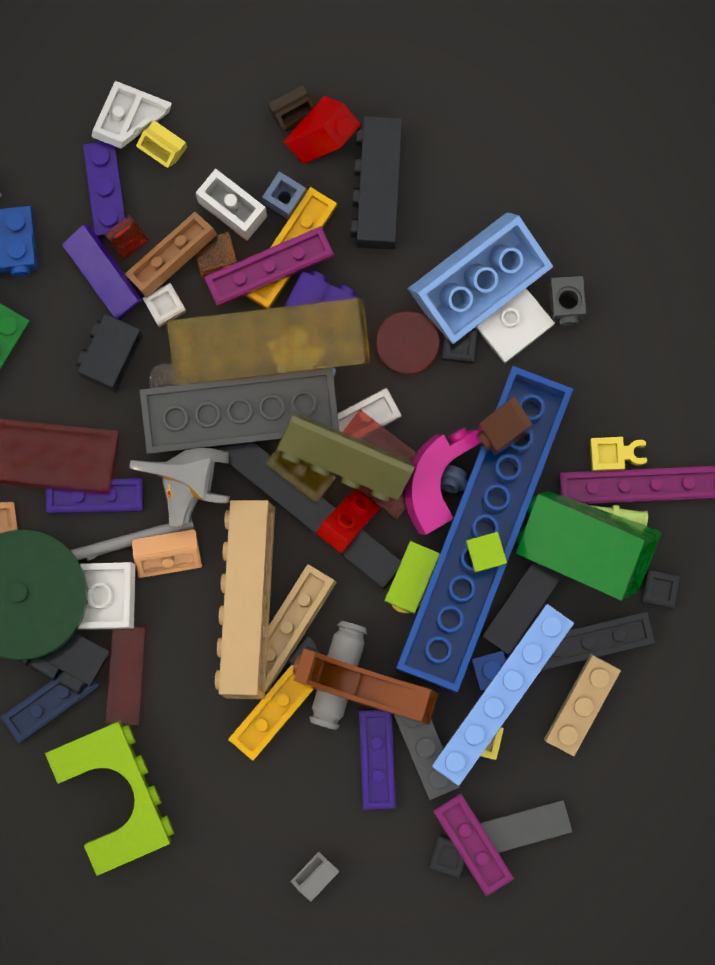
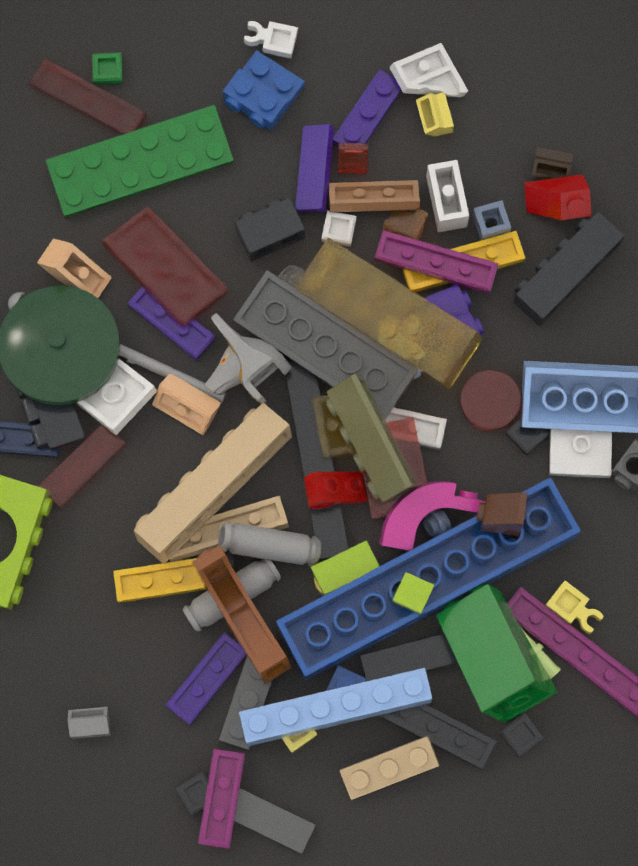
camera: 40 degrees right, 5 degrees down
(335, 610) = (269, 544): none -> light grey axle

